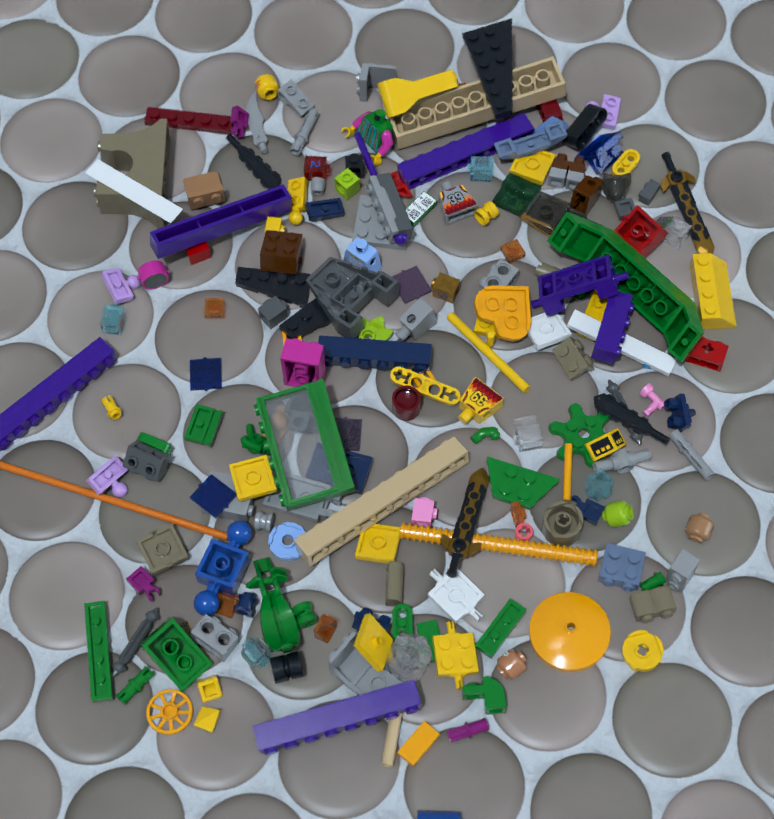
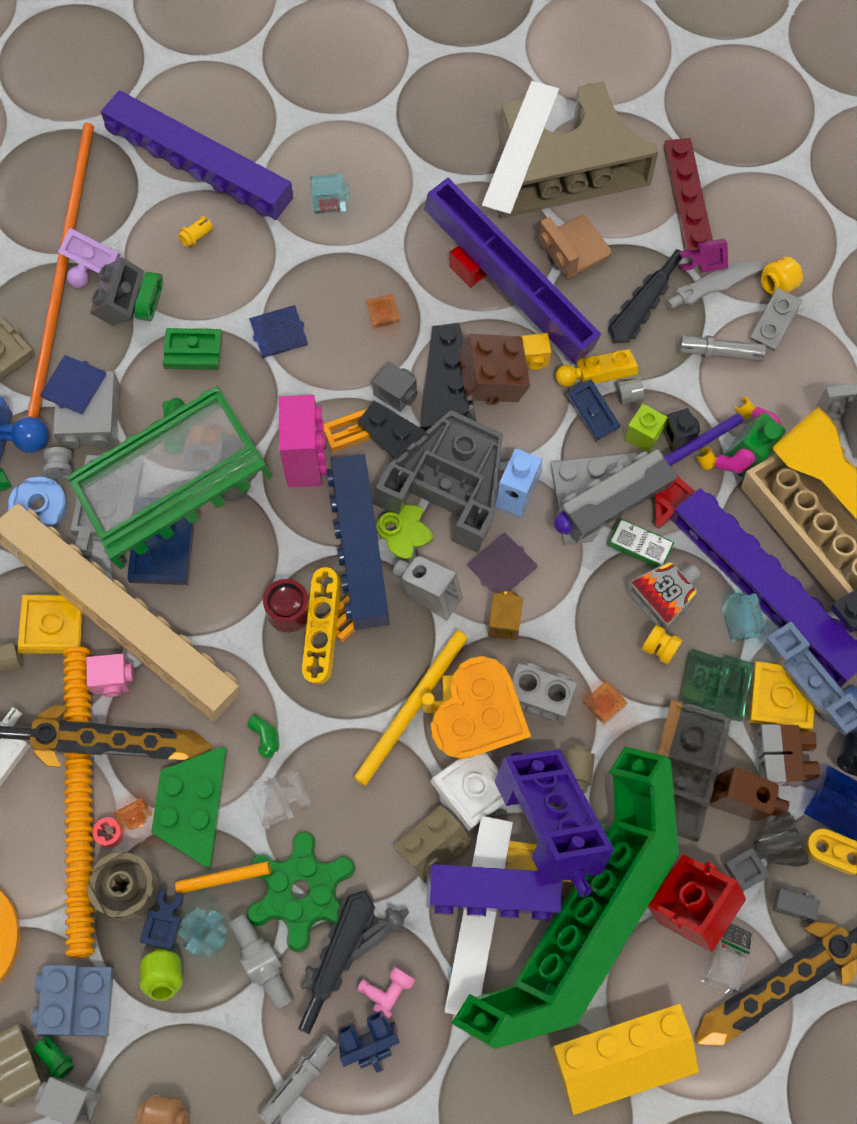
camera: 75 degrees right, 5 degrees up
(118, 286) = (385, 185): lavender plate -> none
(153, 274) = (410, 218): dark pink piece -> none
(252, 478) = (104, 422): yellow plate -> none
(316, 167) = (660, 379): clear red brick -> none
(349, 433) = (224, 536): clear purple piece -> none
(479, 402) = (314, 711): yellow torso -> none
(605, 444) = (281, 930): slope -> none
(713, 359) = (496, 1090): red brick -> none

